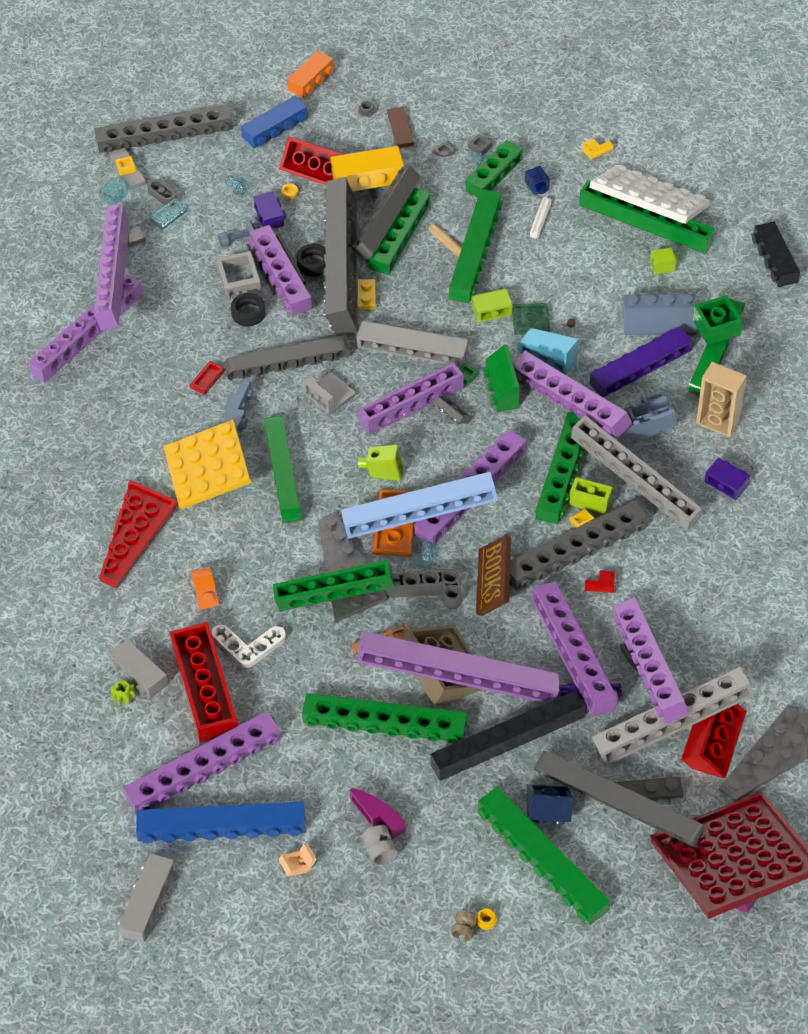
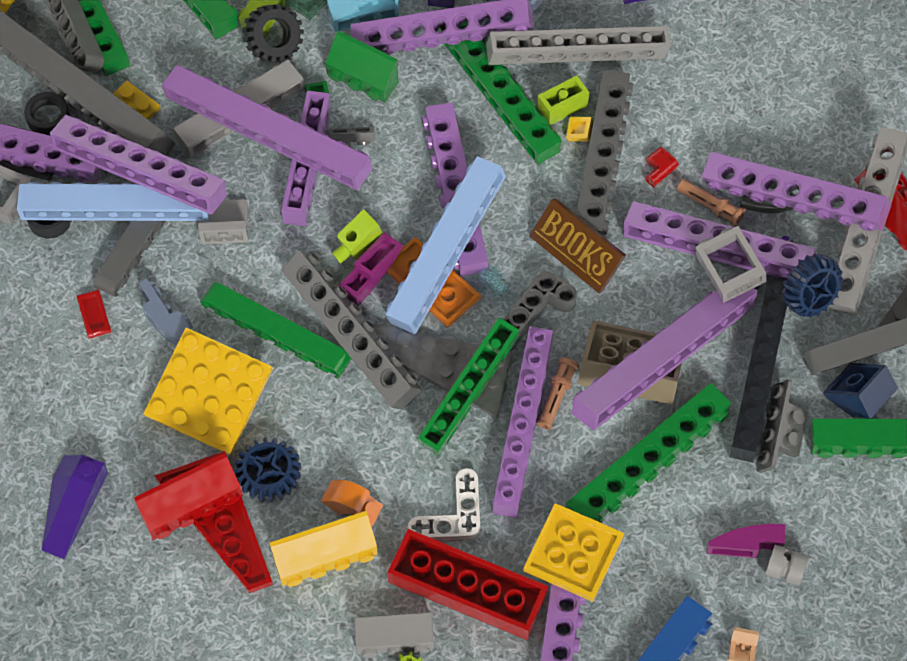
camera: 50 degrees left, 10 degrees up
(83, 453) = (71, 498): none -> dark purple wedge
(125, 500) = (188, 497): none -> red slope
(158, 592) = (324, 549): none -> yellow slope
(174, 532) = (282, 479): none -> dark blue gear
(273, 717) = (573, 552): none -> yellow plate
(282, 328) = (101, 203): none -> light blue brick
(312, 317) = (139, 164): none -> medium lavender brick
(316, 503) = (298, 272): none -> dark grey brick
(342, 633) = (523, 422): none -> medium lavender brick
(368, 484) = (371, 268): none -> magenta slope
(405, 361) = (268, 127): none -> medium lavender brick
(463, 310) = (290, 27): none -> black tyre
(478, 781) = (783, 428): none -> dark grey bracket
(549, 673) = (740, 283): none -> light grey window
(588, 707) = (812, 285): none -> dark blue gear
(605, 634) = (721, 207): none -> nougat pin

